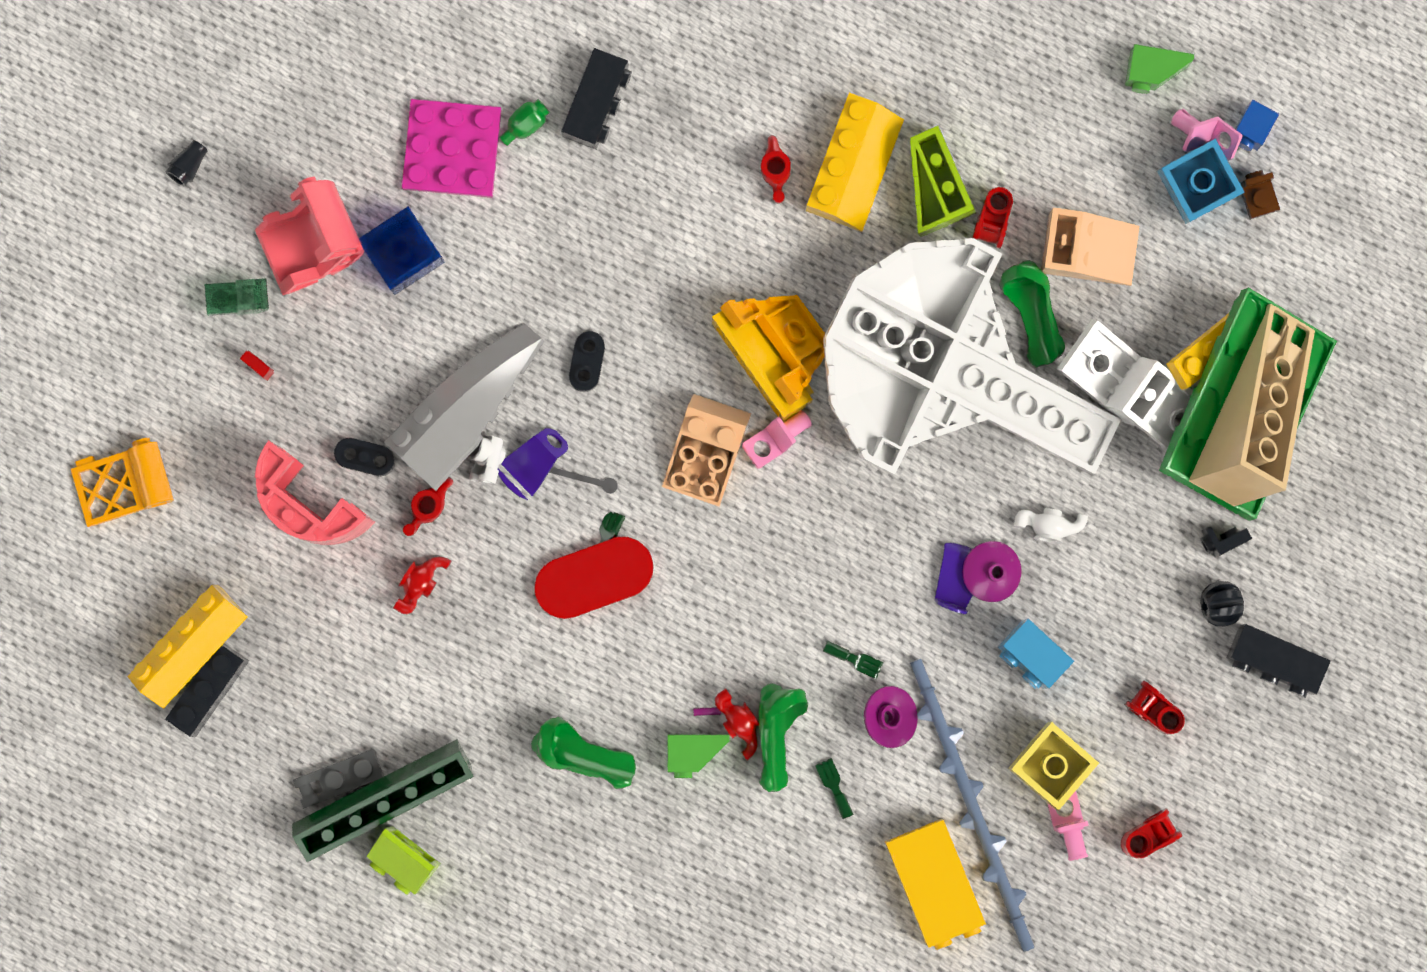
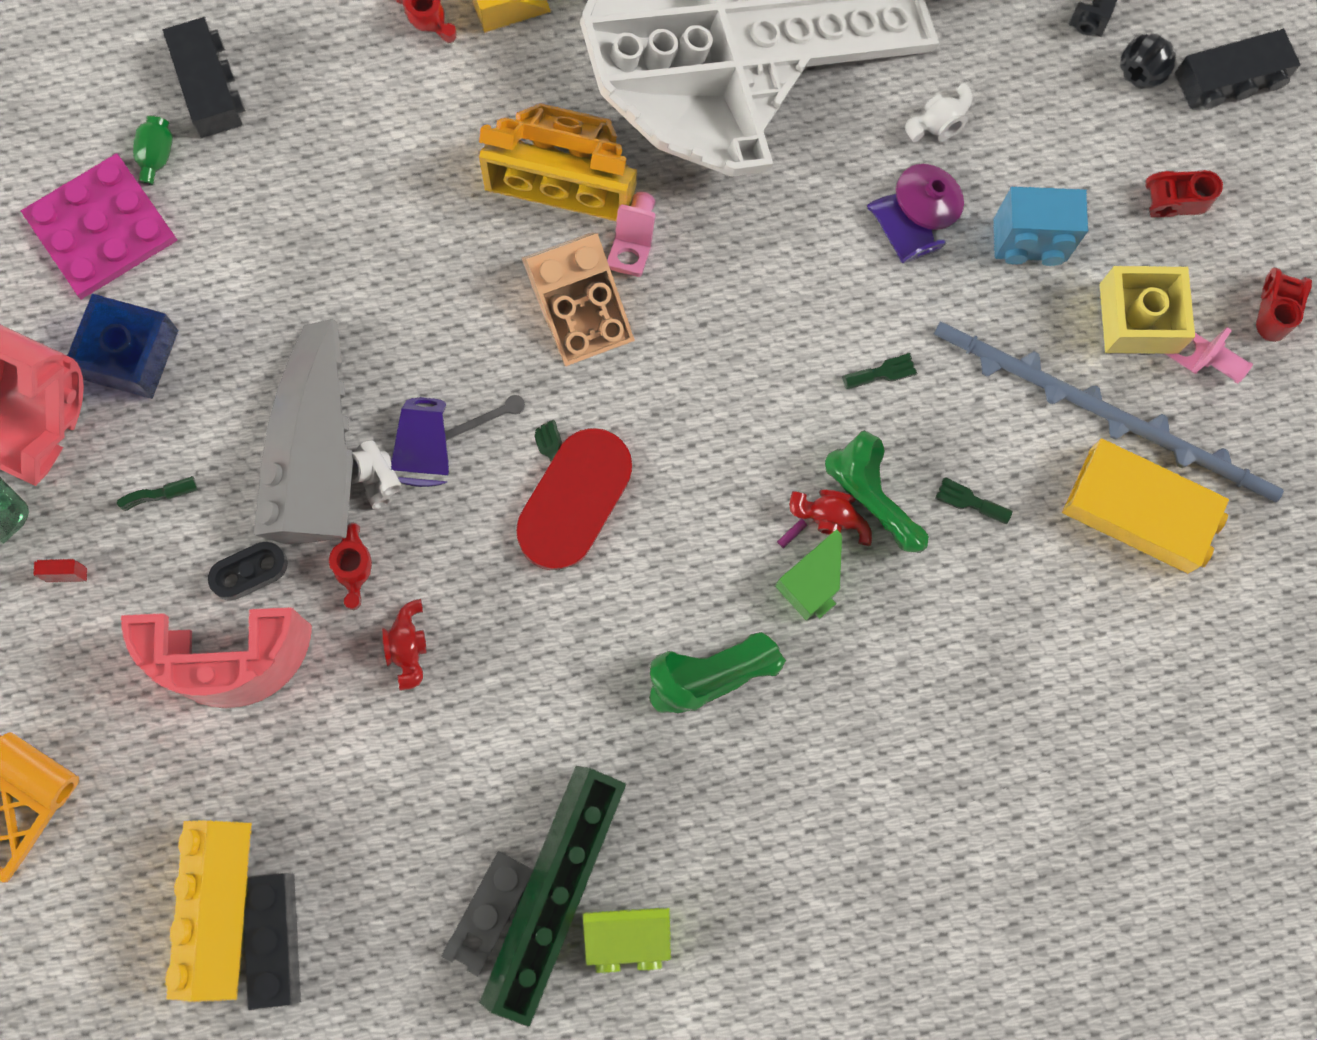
camera: 50 degrees left, 10 degrees down
(359, 365) = (168, 491): none -> dark green piece
(587, 361) = (395, 309): black plate -> none
(901, 717) = (964, 391): magenta dish -> none

